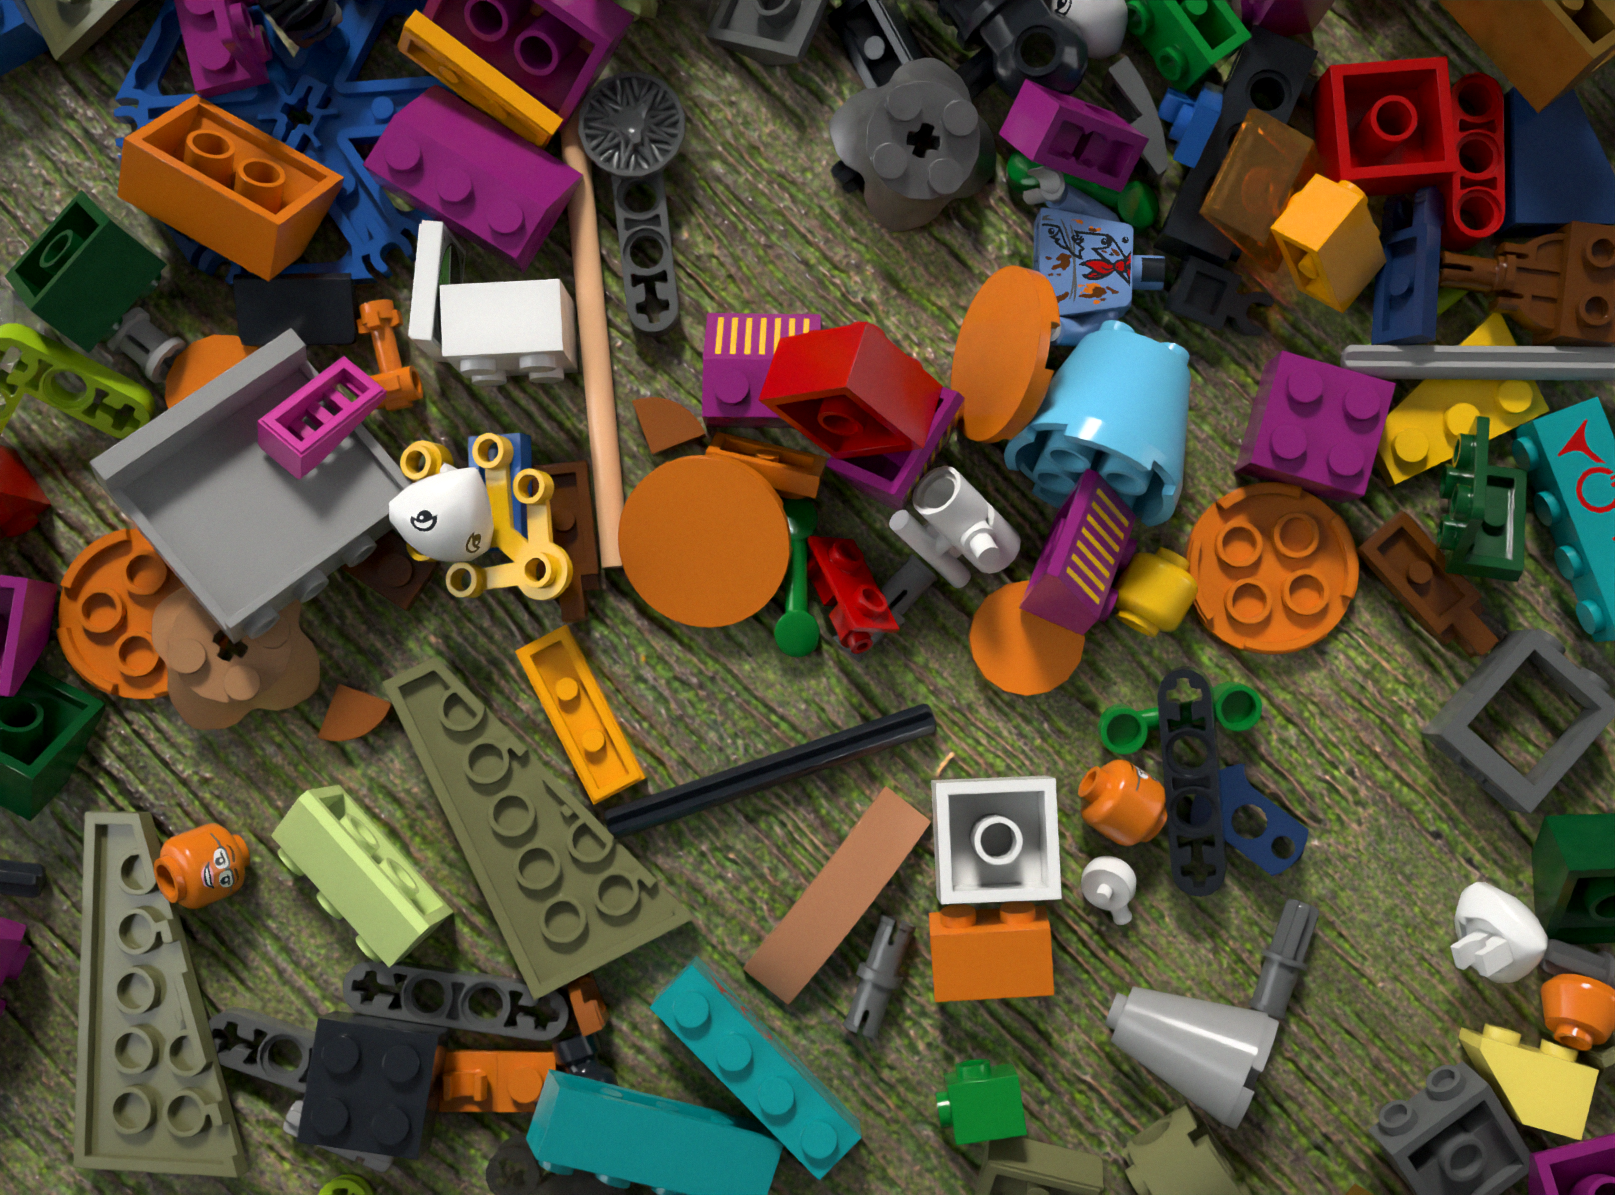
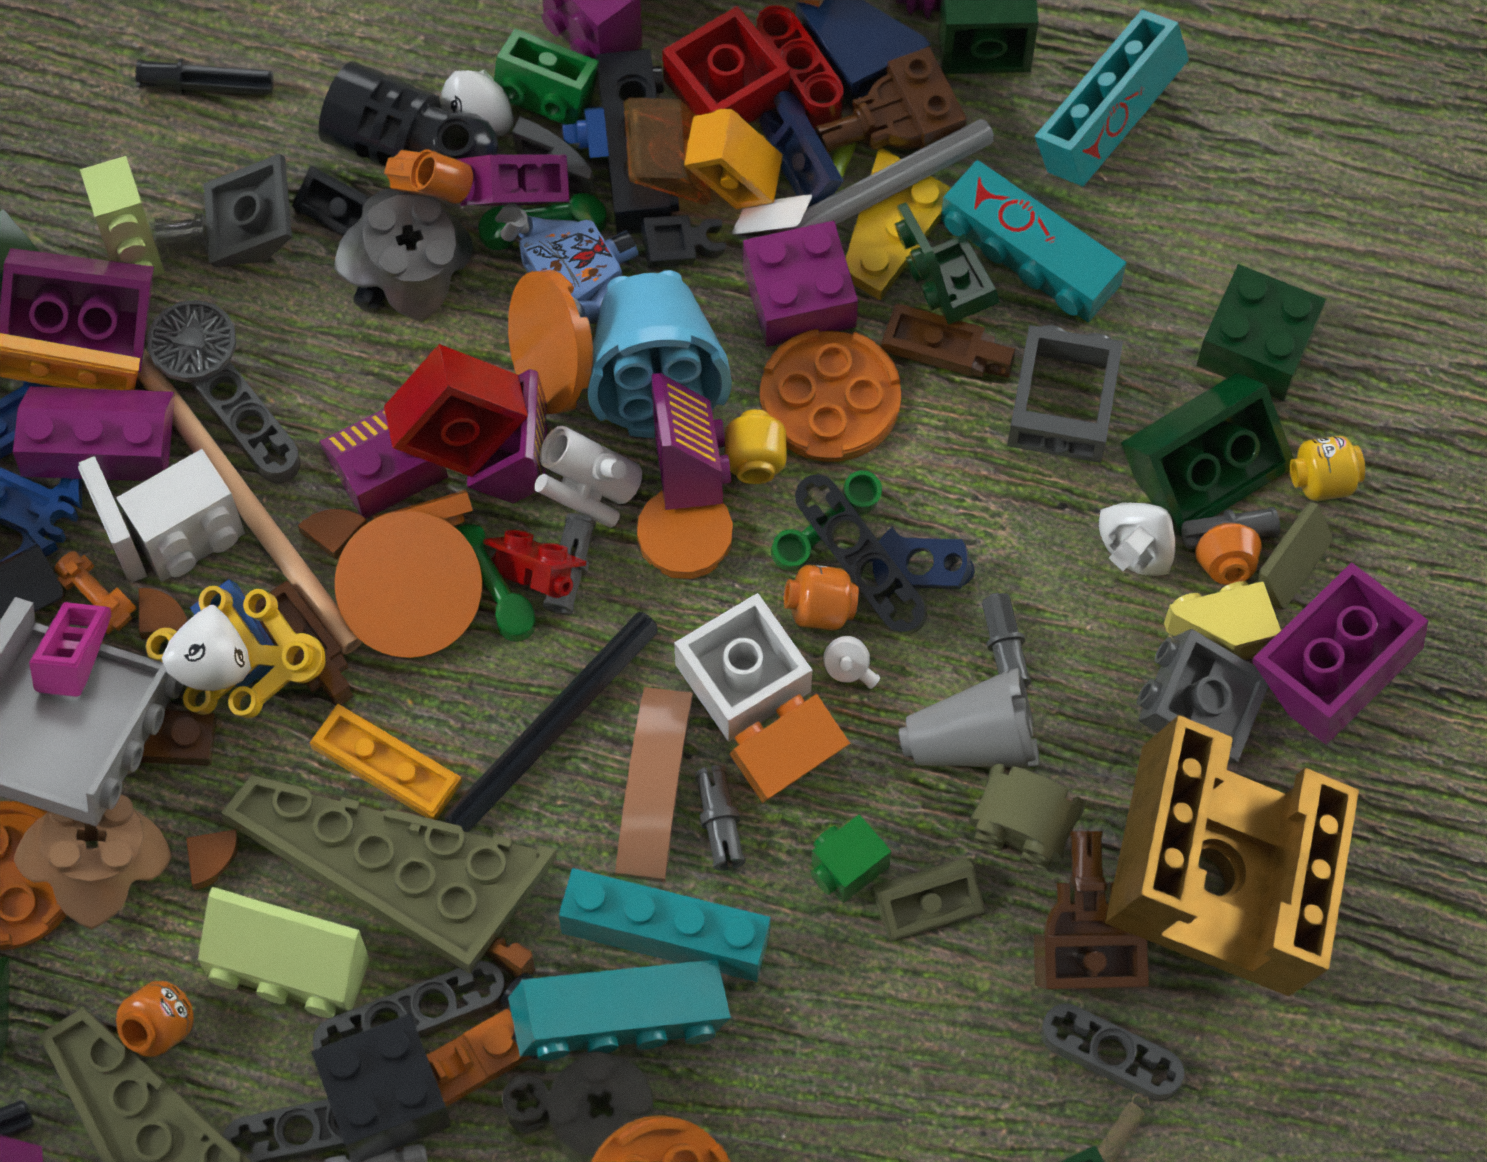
camera: 35 degrees left, 20 degrees down
(442, 418) = (158, 611): none -> dark orange tile
(984, 82) = (429, 175): none -> orange piece
(1341, 335) = (777, 215): none -> white sticker

